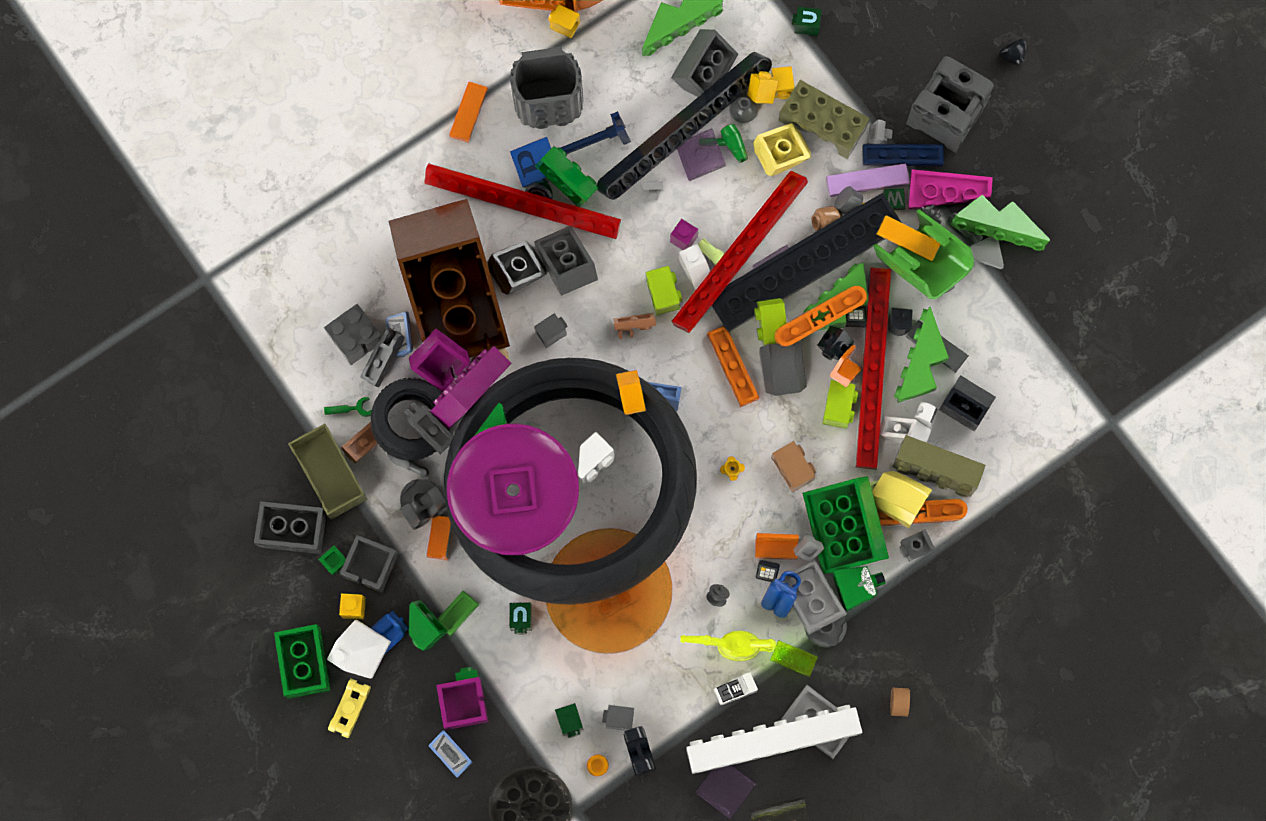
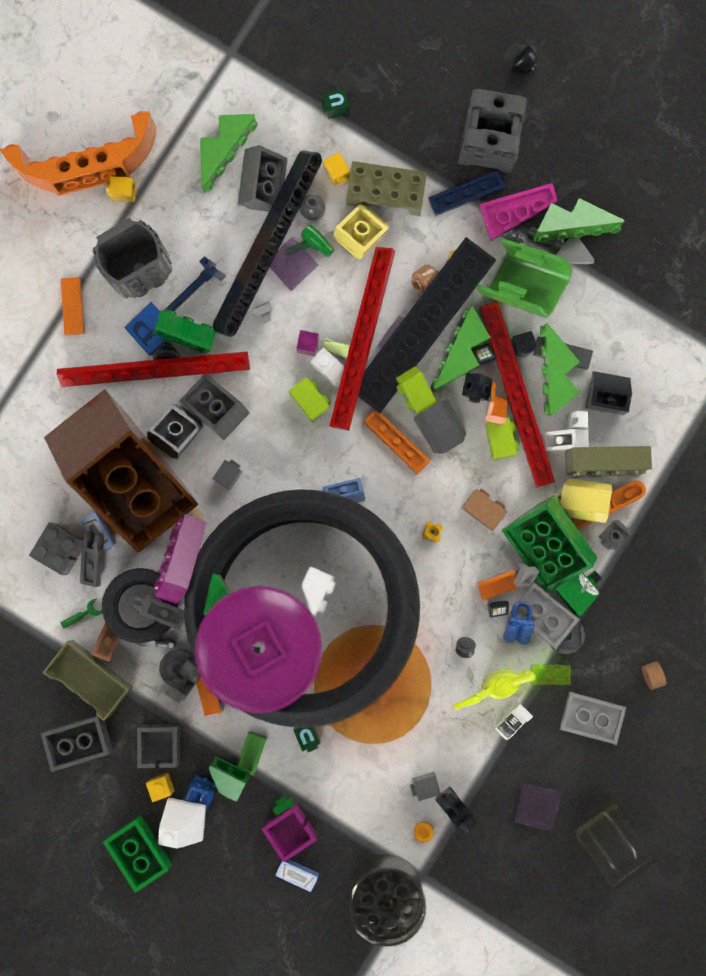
camera: 25 degrees left, 10 degrees up
(333, 560) = (126, 753): green plate -> none
(349, 708) = (195, 872): light yellow plate -> none
(434, 360) = (138, 546): magenta piece -> none
(569, 720) = (385, 806): dark green brick -> none
(630, 392) = (324, 514): light orange slope -> none
(642, 321) = (299, 436): nougat plate -> none
(762, 88) = (322, 181): yellow brick -> none
(773, 740) = (563, 753): white brick -> none
(837, 306) = (467, 355): orange piece -> none
(848, 200) = (437, 254): dark grey piece -> none
(869, 179) = (445, 228): lavender tile -> none
(878, 133) = (438, 182): light grey tile -> none
(896, 198) = (476, 235): dark green tile -> none
(908, 238) = (504, 269): light orange tile -> none

